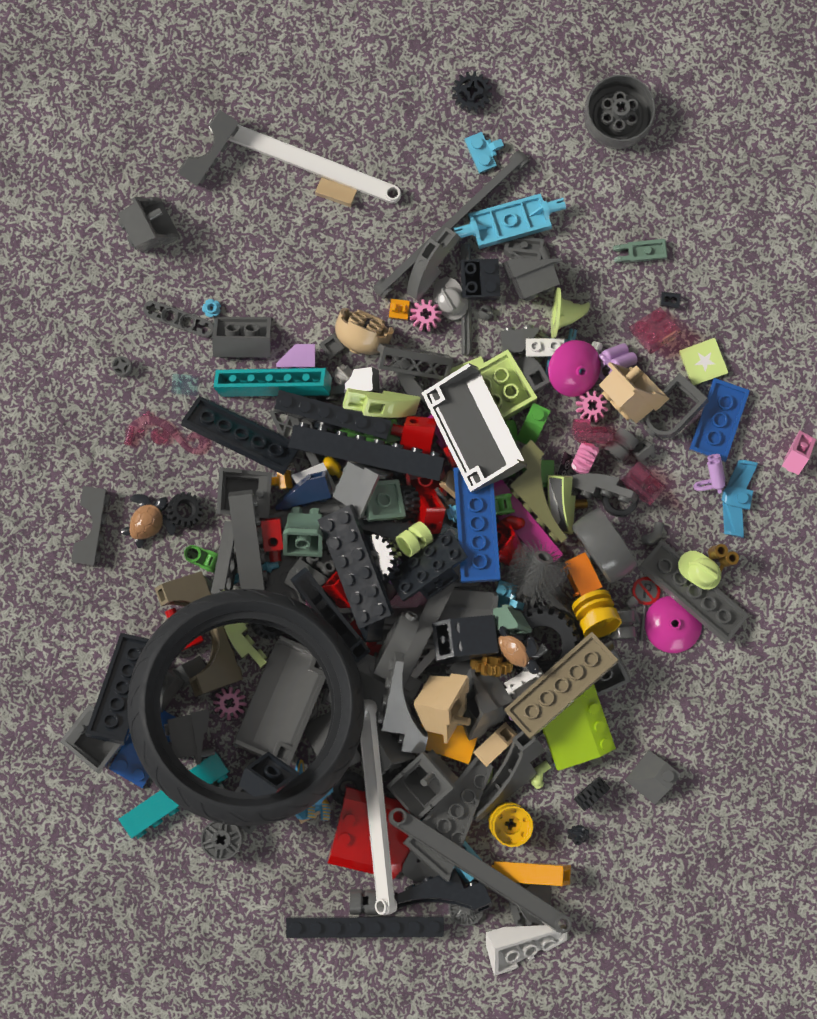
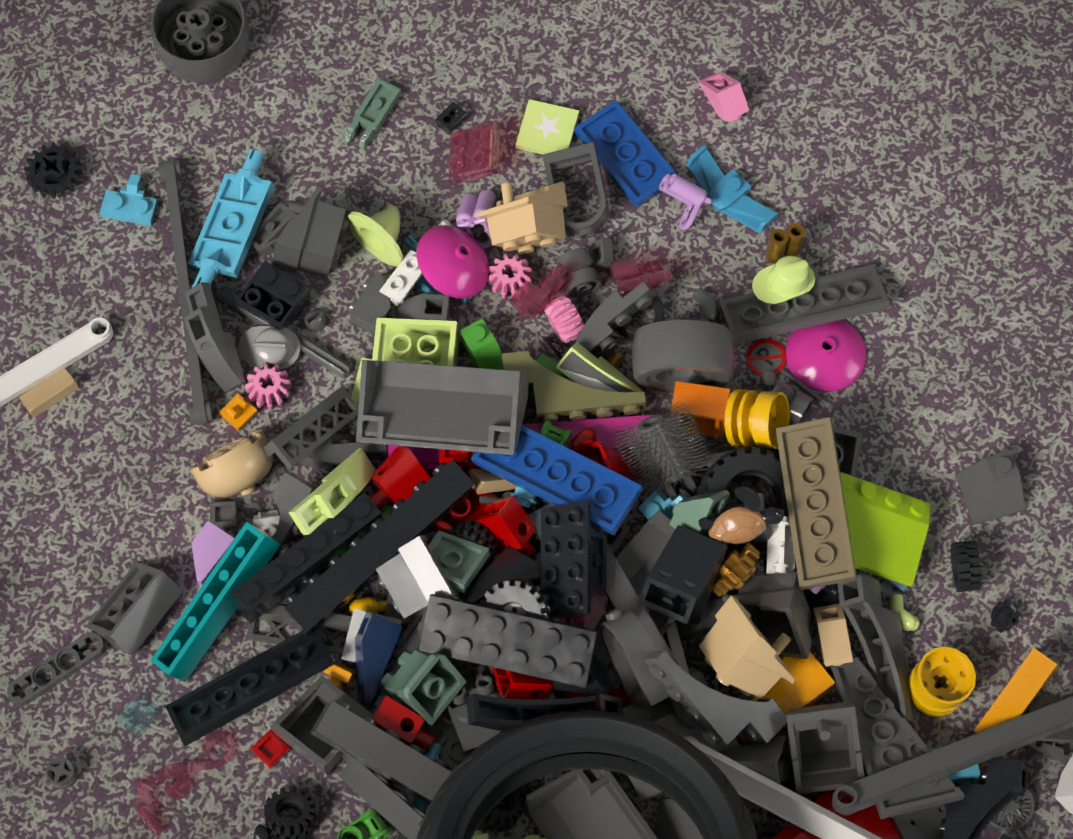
camera: 45 degrees left, 15 degrees down
(211, 303) = (77, 627): medium azure plate -> none
(212, 470) = (270, 749): none -> red tile
(414, 538) = (523, 555): yellowish green wheel -> none

